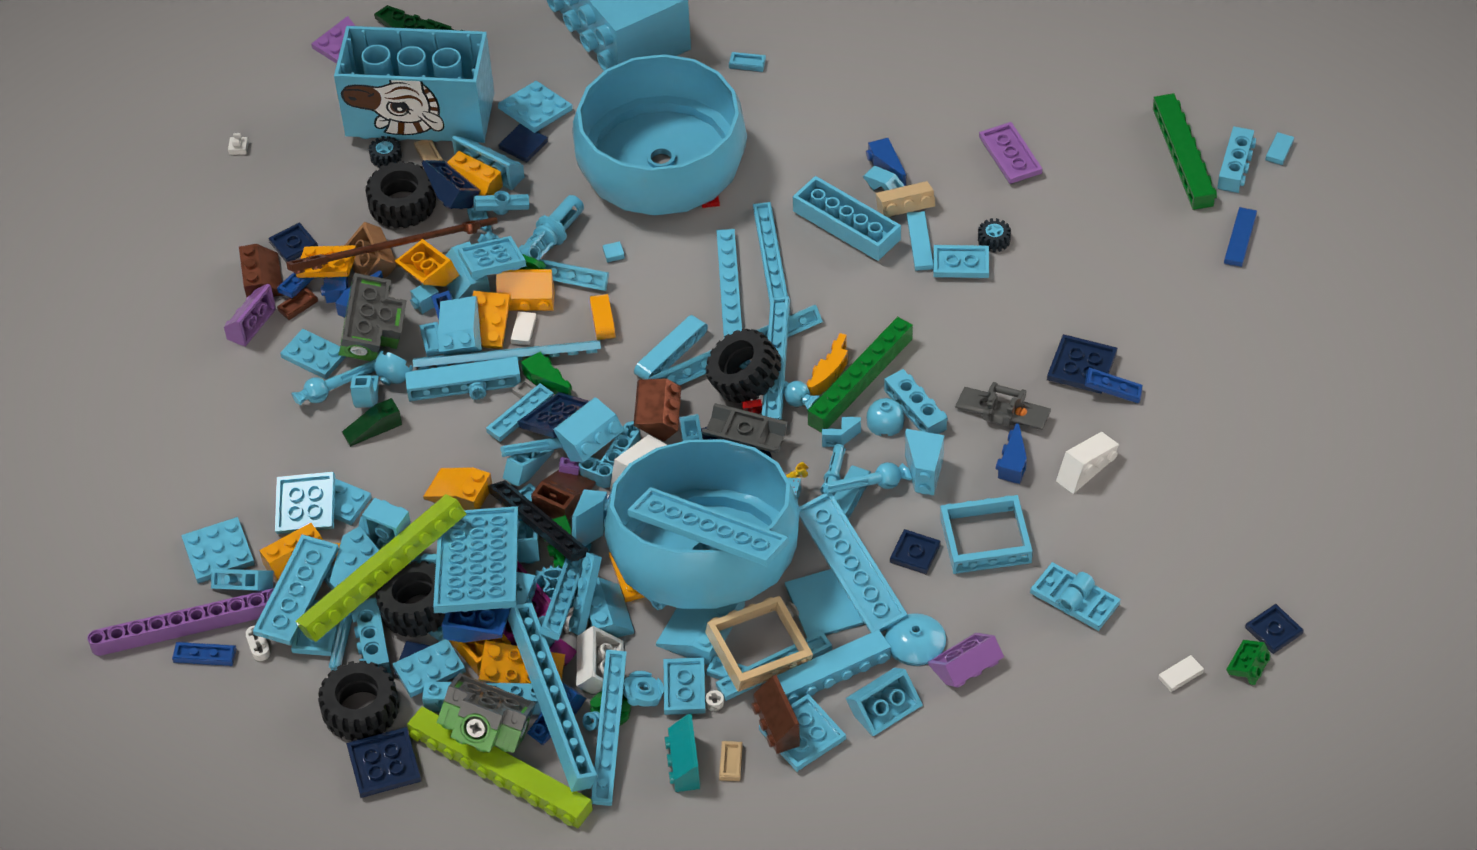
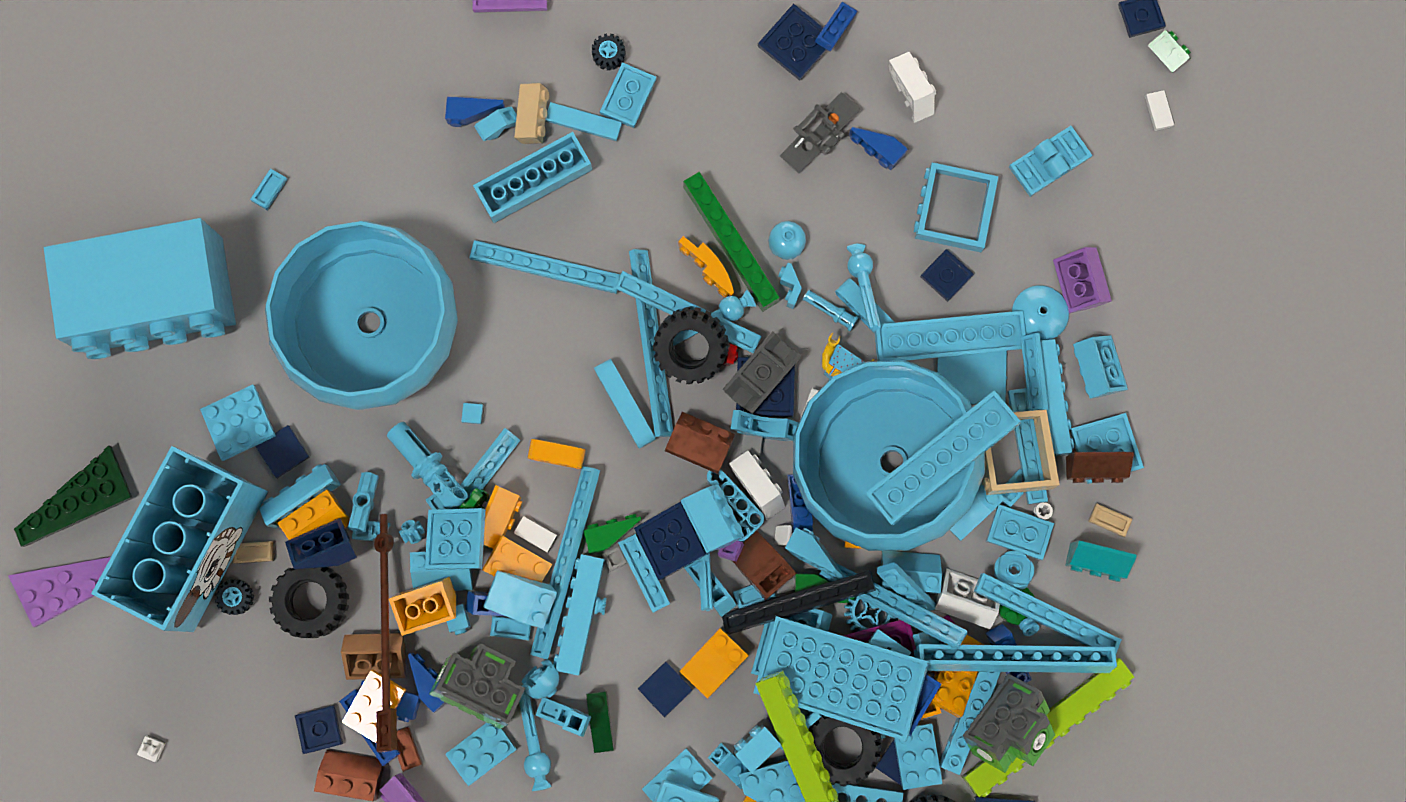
camera: 75 degrees left, 30 degrees up
(419, 463) = (665, 689): none -> dark blue tile
(729, 281) = (564, 319): medium azure plate -> none
(848, 638) = (1034, 372): none -> medium azure tile
(915, 403) = (777, 214): medium azure brick -> none
(924, 459) = (862, 226): medium azure slope -> none

